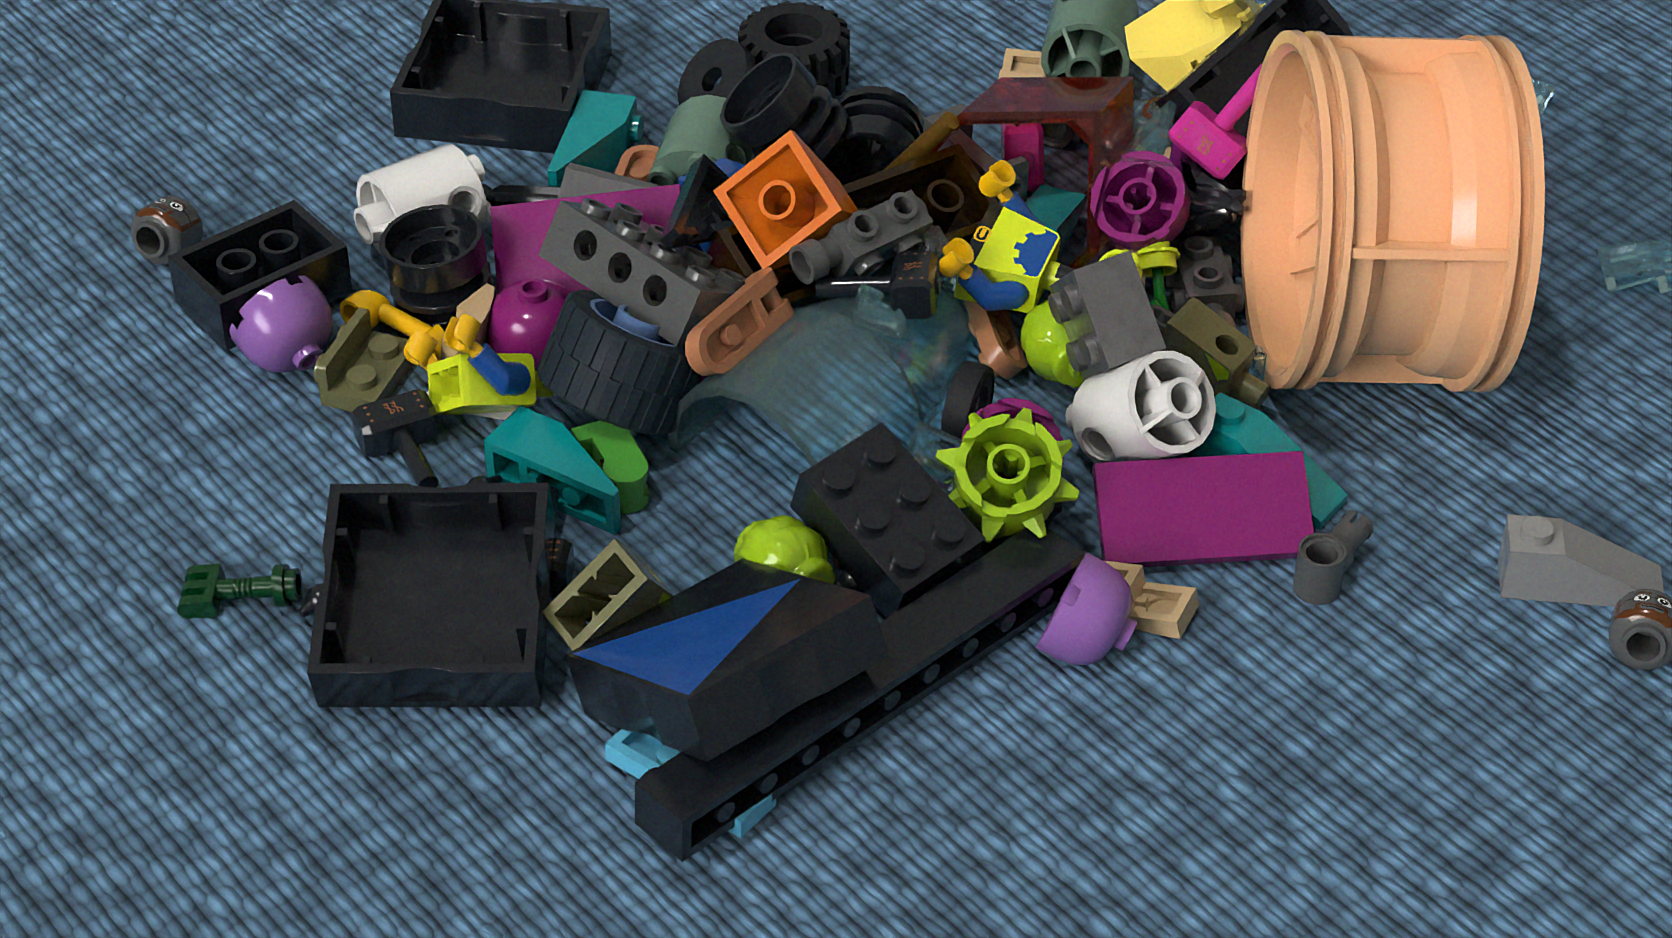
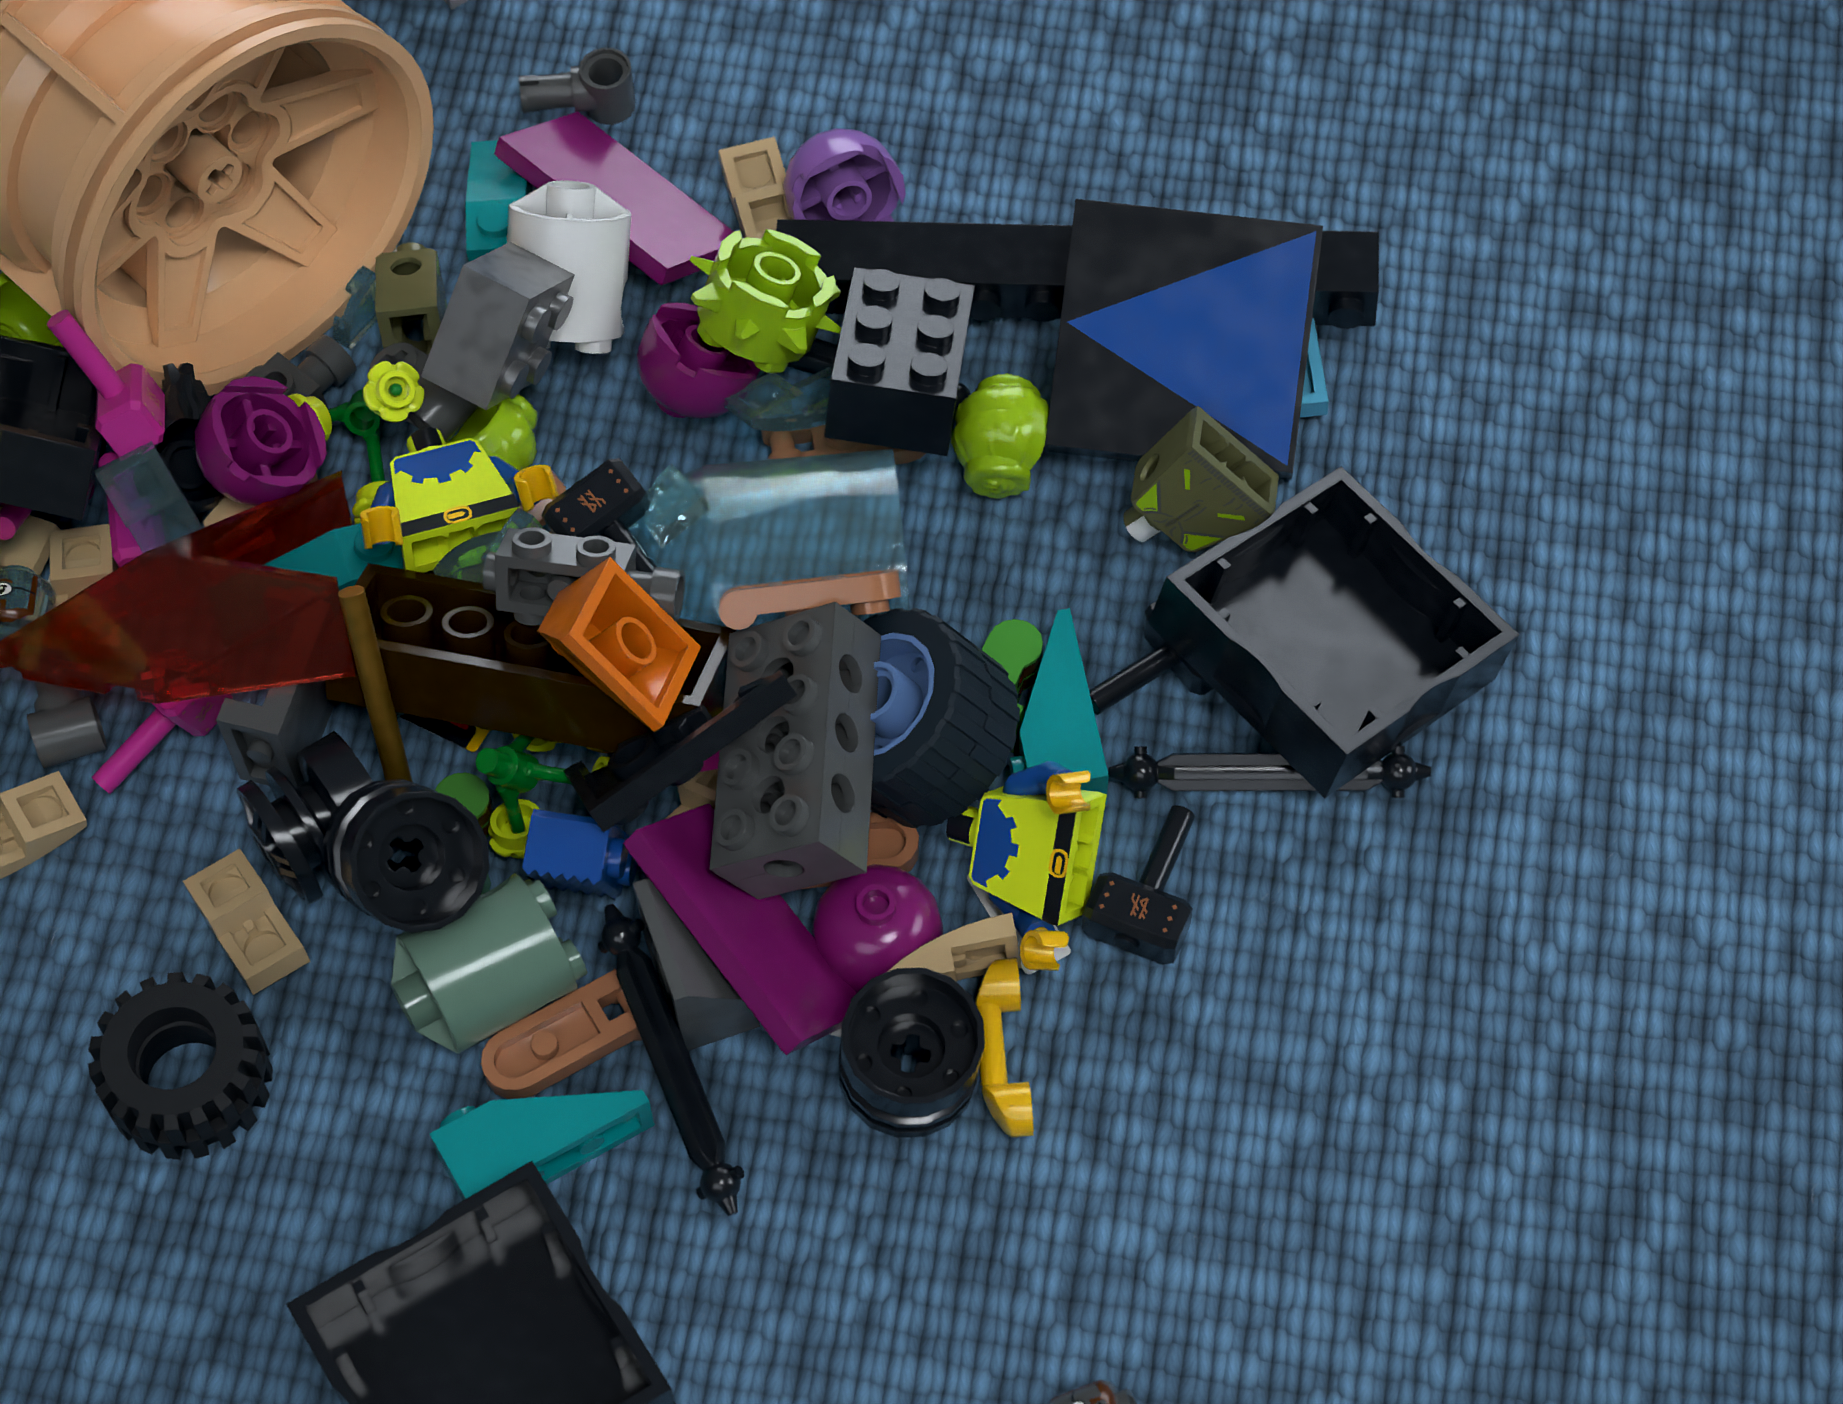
camera: 130 degrees left, 20 degrees up
(207, 586) = (1421, 809): dark green hinge -> none
(234, 265) = (1077, 1232): black brick -> none
(284, 326) = (1126, 1130): medium lavender cylinder -> none
(360, 365) = (1084, 1031): olive bracket -> none
(426, 179) = (826, 1173): white cylinder -> none
(716, 60) = (349, 1098): black tile -> none
(968, 393) = (657, 421): black tyre -> none

